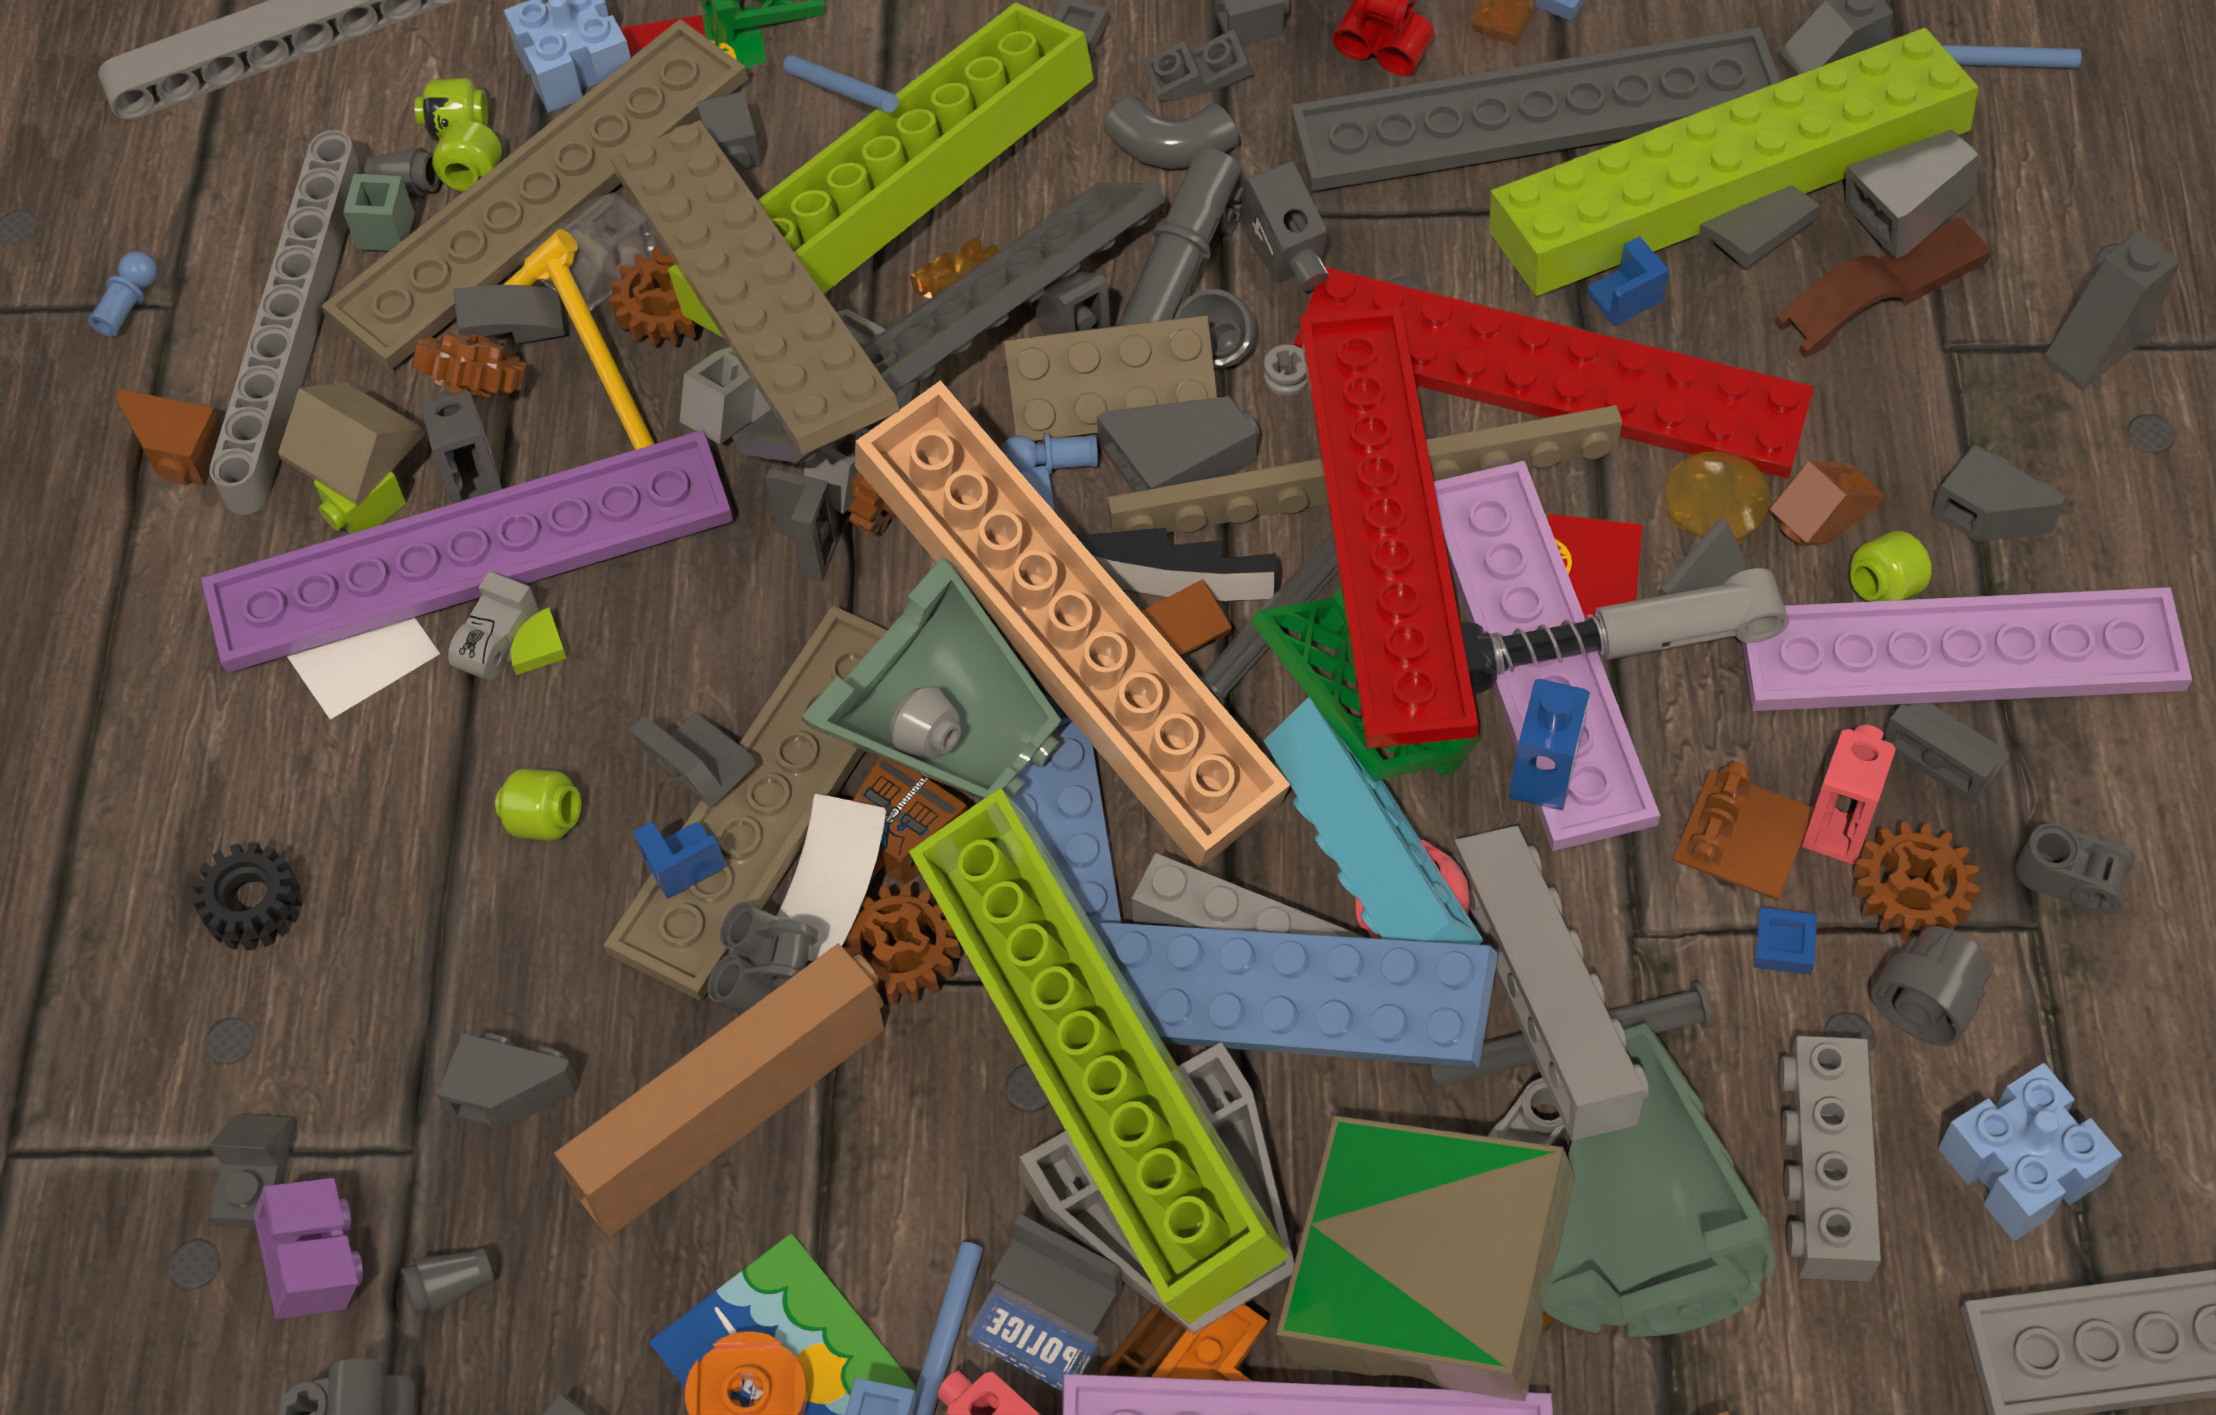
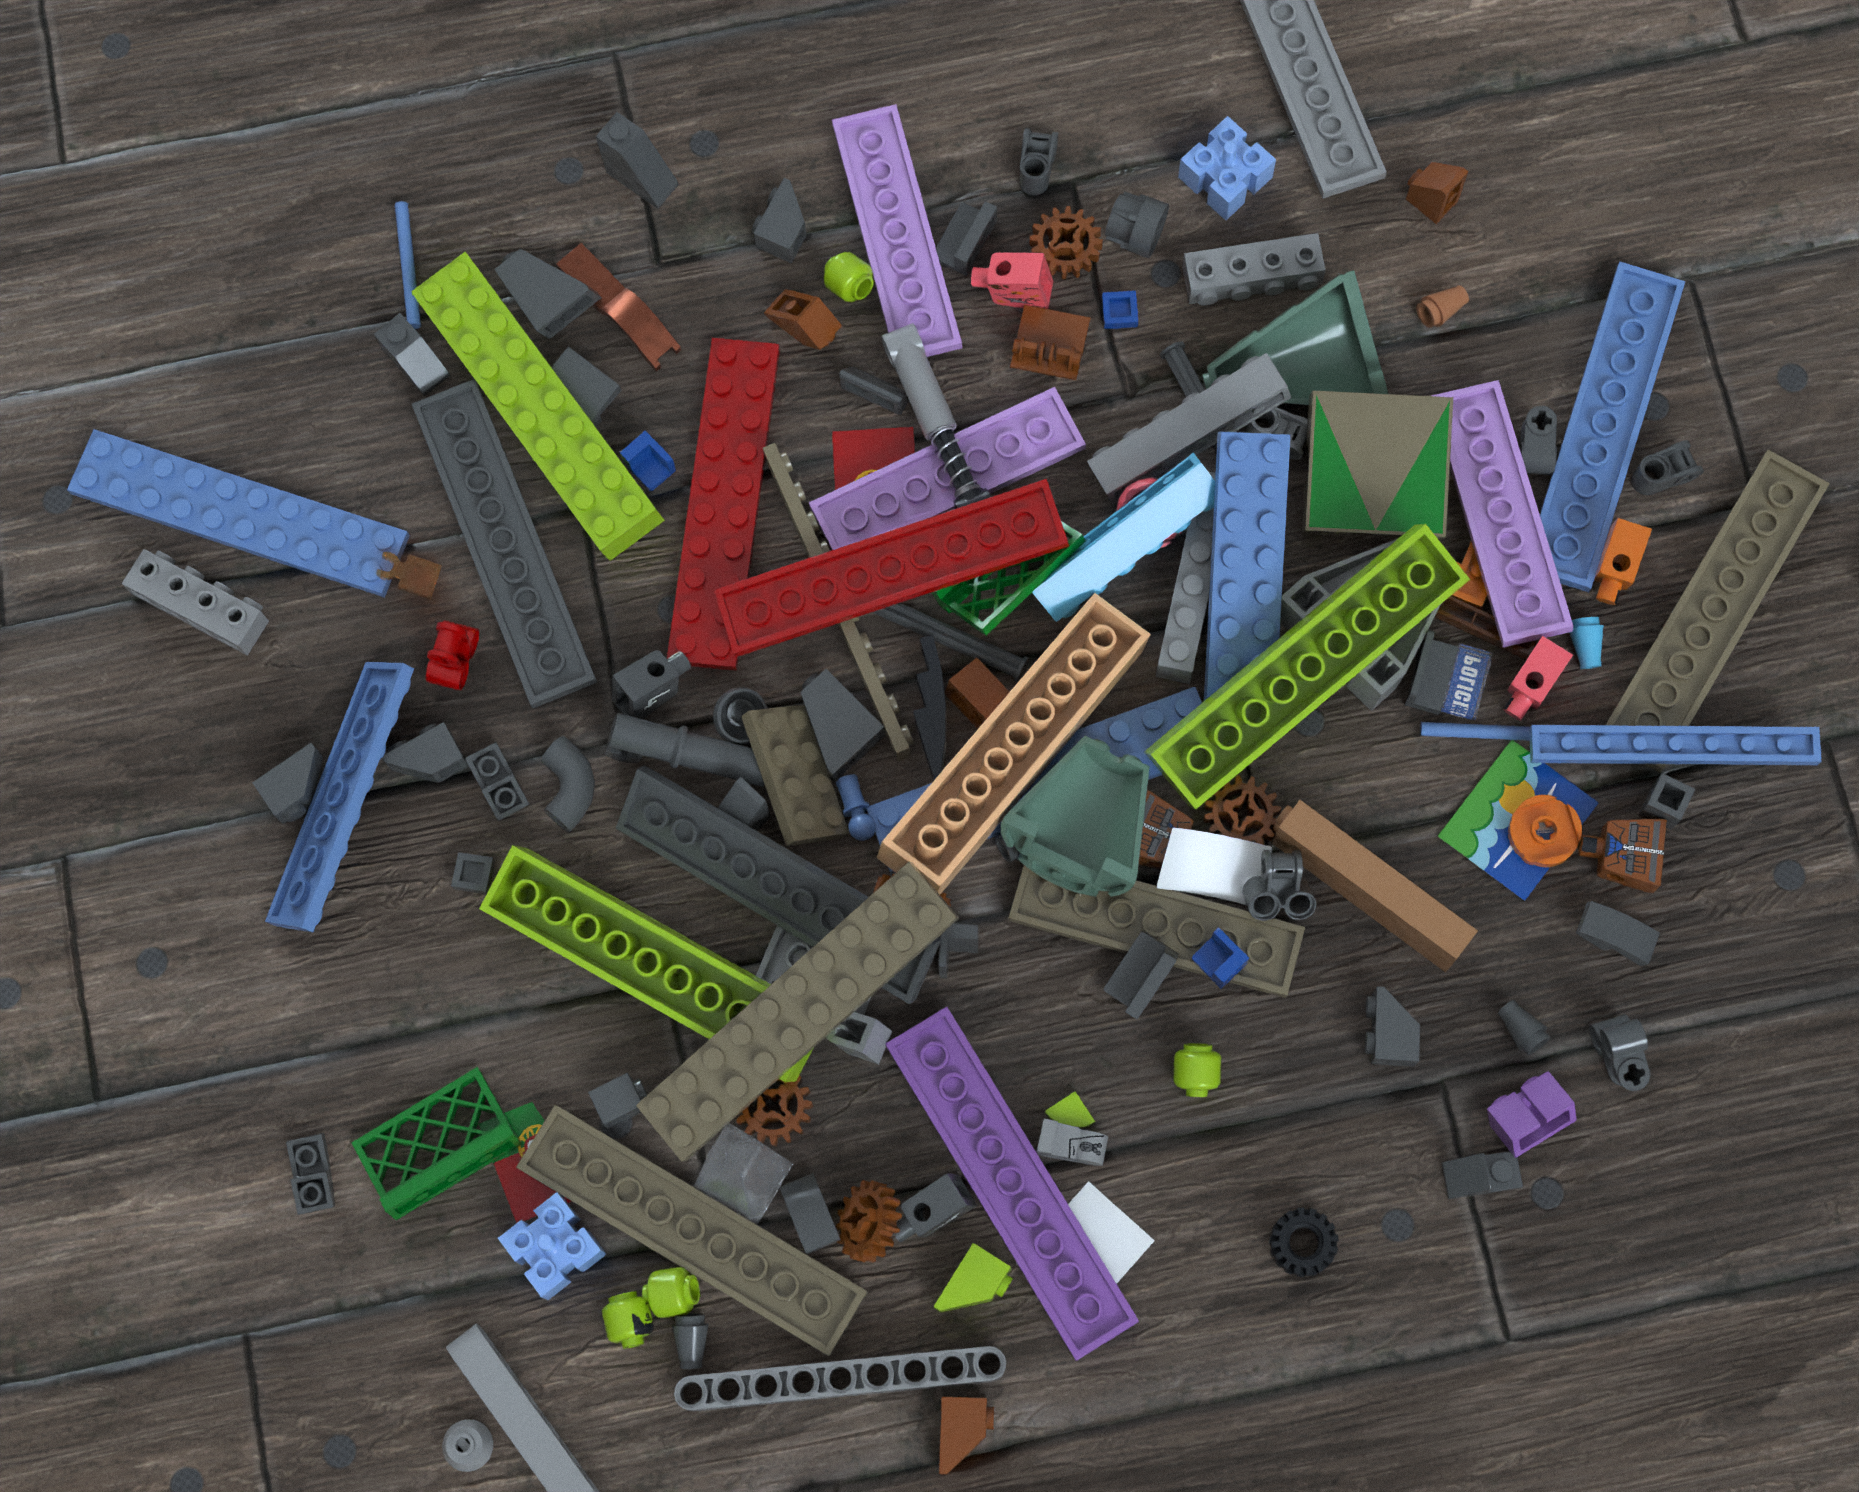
camera: 100 degrees left, 15 degrees up
(346, 439) = (955, 1279): dark tan slope -> none
(378, 211) = (741, 1337): sand green brick -> none
(551, 263) = (768, 1184): yellow bar -> none
(841, 83) = (571, 1021): medium blue bar -> none
(924, 723) = (1105, 818): light grey cone -> none
(949, 268) = (717, 908): clear orange plate -> none
(1279, 382) = (757, 659): light grey bush -> none
(1554, 731) = (1030, 446): blue torso -> none
(1715, 488) = (806, 387): clear yellow dish -> none

